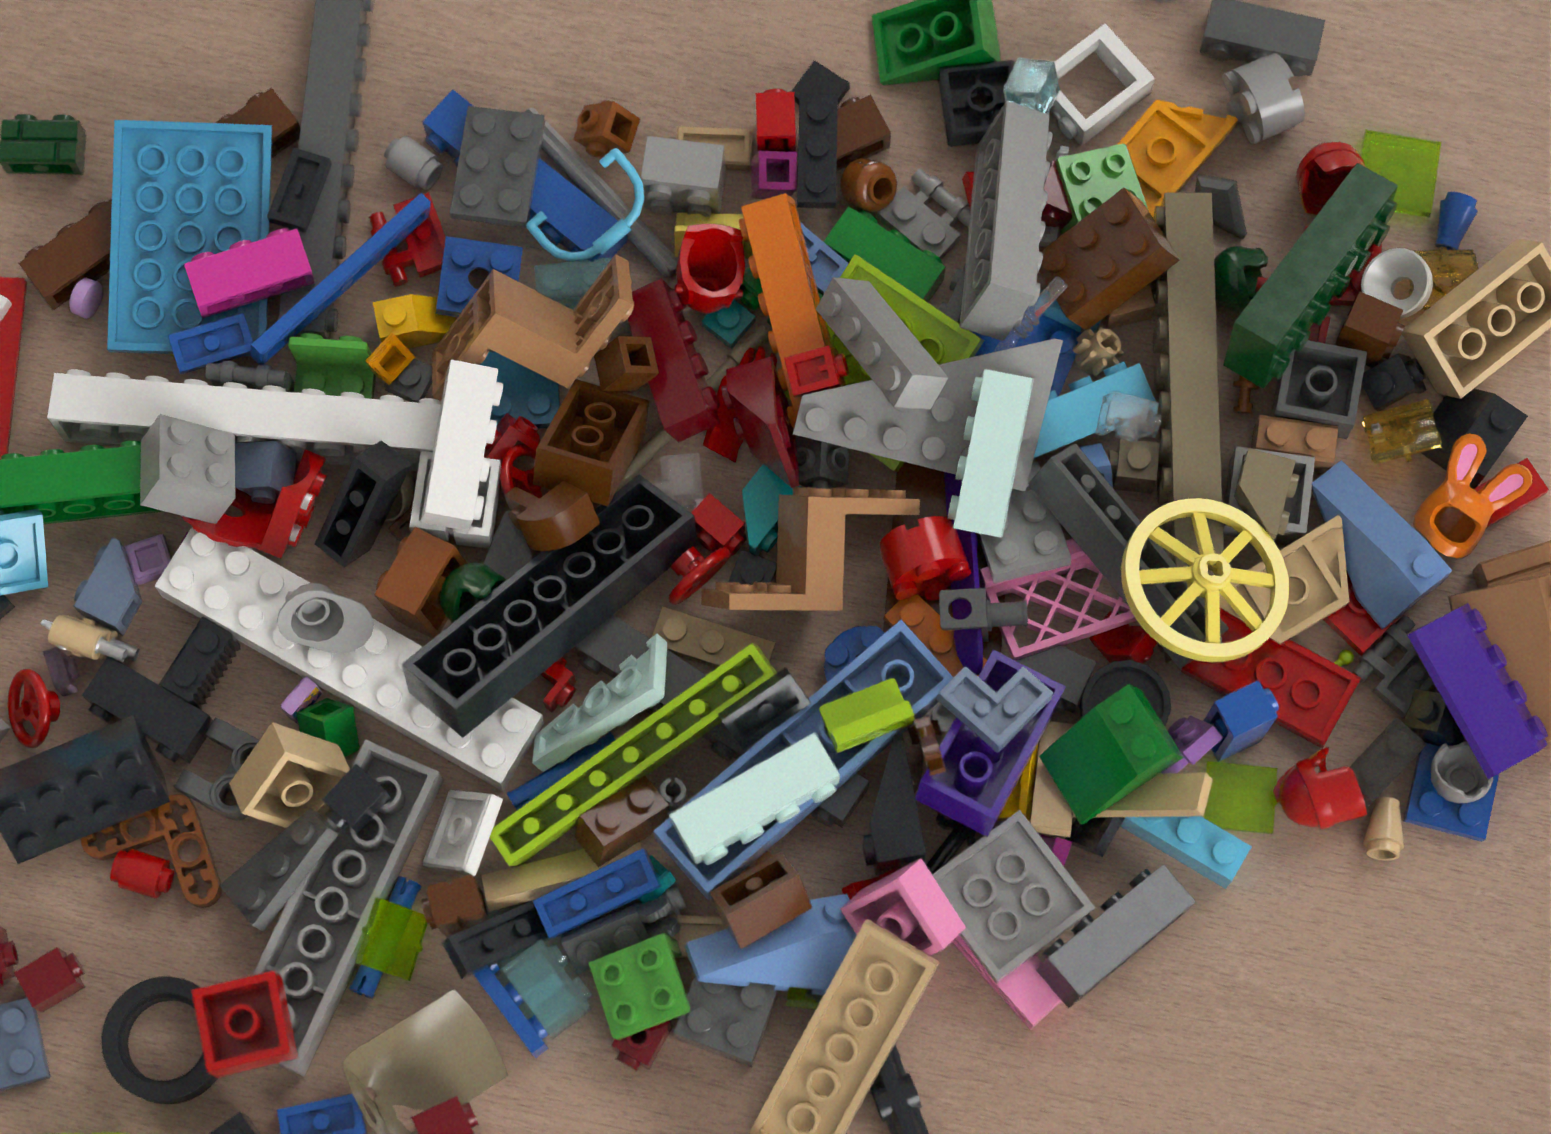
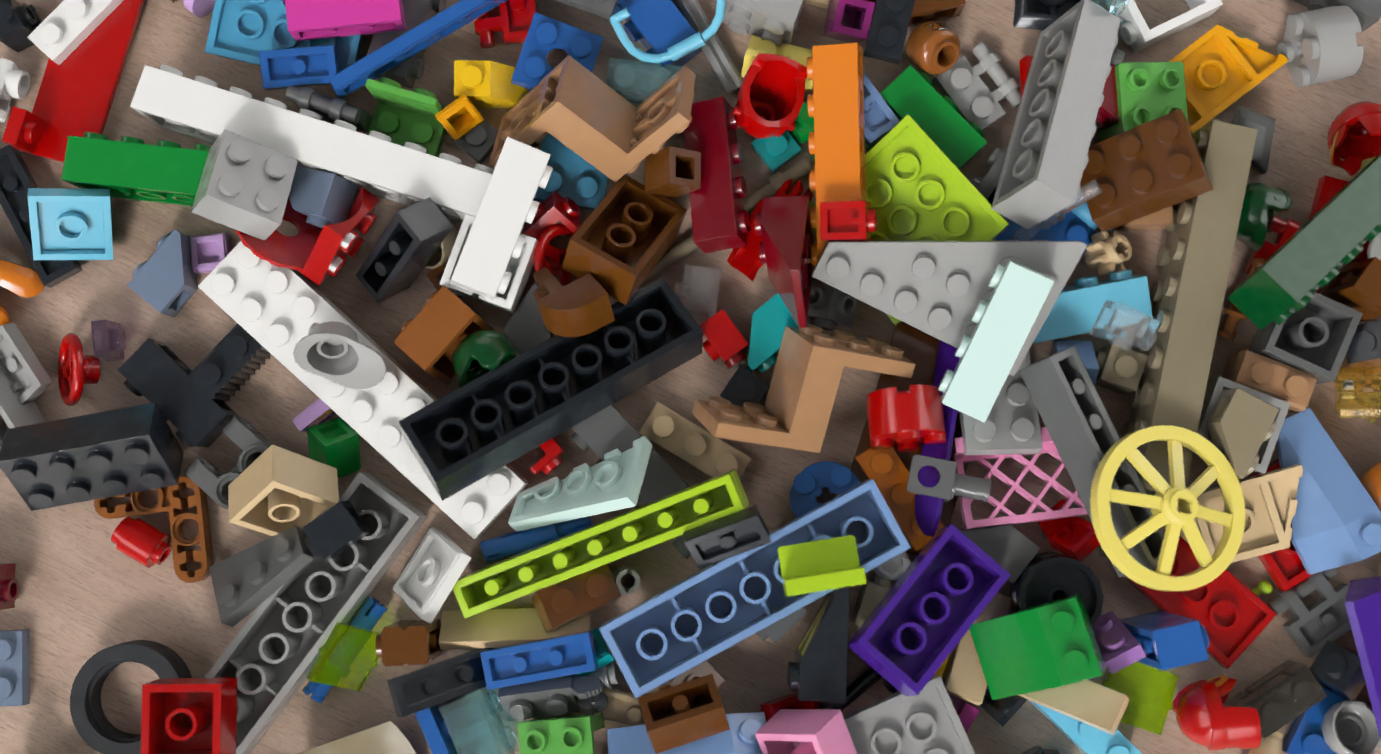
camera: 15 degrees right, 10 degrees up
(51, 979) = (41, 619): dark red brick -> none
(88, 639) = (134, 318): tan piece -> none
(695, 571) = (693, 378): red piece -> none
(755, 799) = (698, 626): light aqua brick -> none
(882, 343) = (916, 212): light grey brick -> none
(925, 733) = (873, 611): reddish brown piece -> none
(992, 714) = (943, 594): sand blue plate -> none

